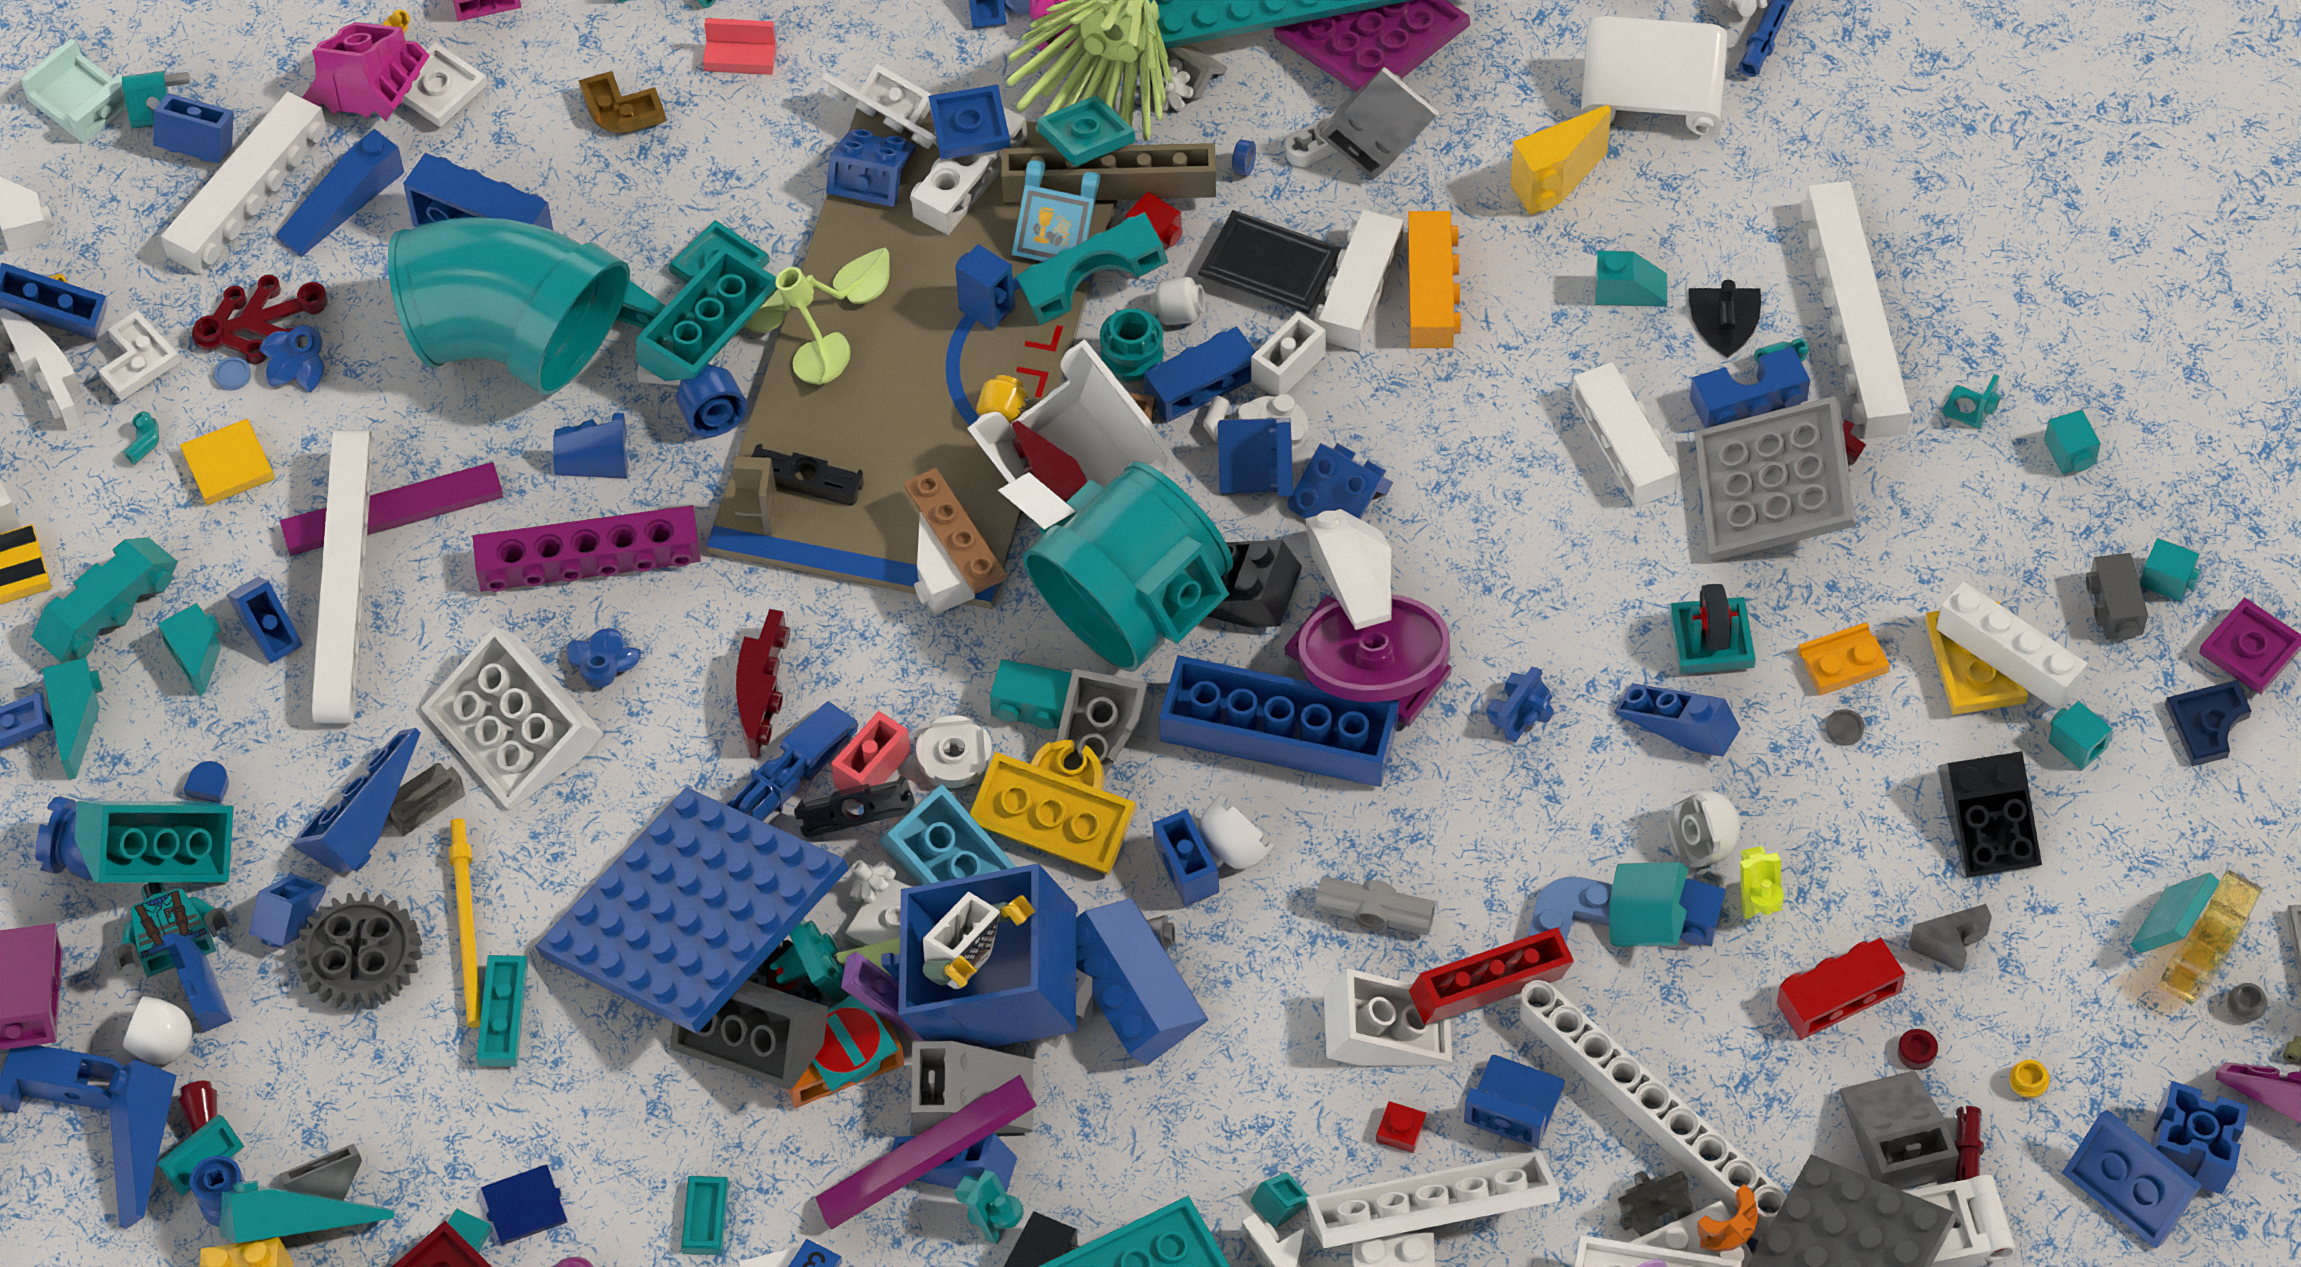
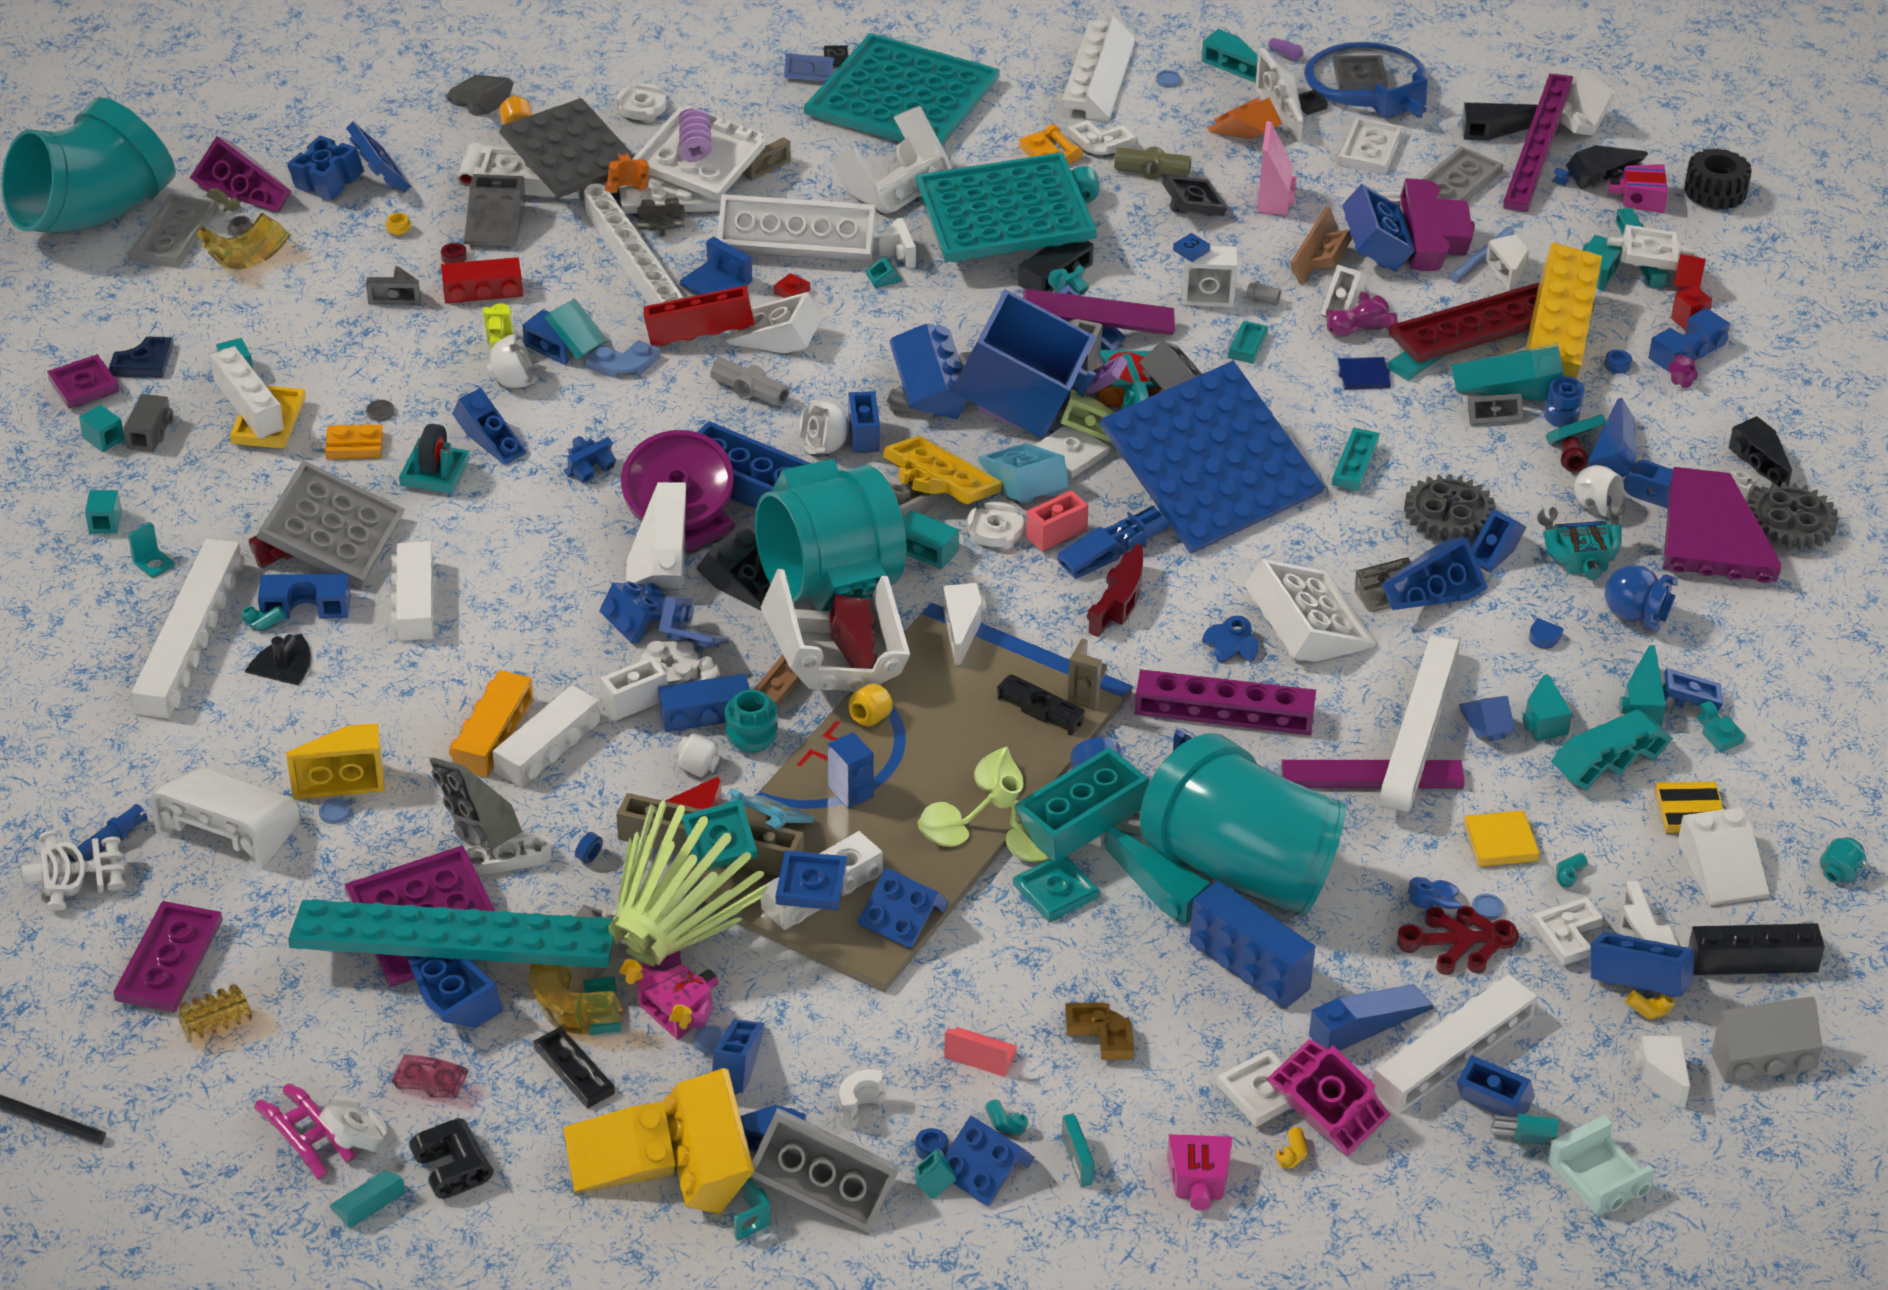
camera: 165 degrees left, 15 degrees down
(155, 840) = (1588, 564): teal slope -> none
(198, 982) = (1568, 503): blue slope -> none
(461, 857) = (1366, 546): yellow bar -> none
(870, 879) = (1081, 464): white plant -> none
(878, 801) = (1087, 493): black piece -> none
(891, 97) = (870, 948): white bracket -> none
(955, 530) = (942, 616): medium nougat bracket -> none
(966, 938) = (1042, 328): torso -> none
(1036, 500) = (880, 579): white sticker -> none
(1127, 247) = (724, 767): teal arch -> none
(1270, 261) = (609, 766): black piece -> none
(1628, 280) = (346, 686): teal slope -> none
(1968, 1142) = (457, 204): dark red pin -> none
(1991, 813) = (321, 341): black slope -> none
(2175, 913) = (253, 255): teal tile -> none

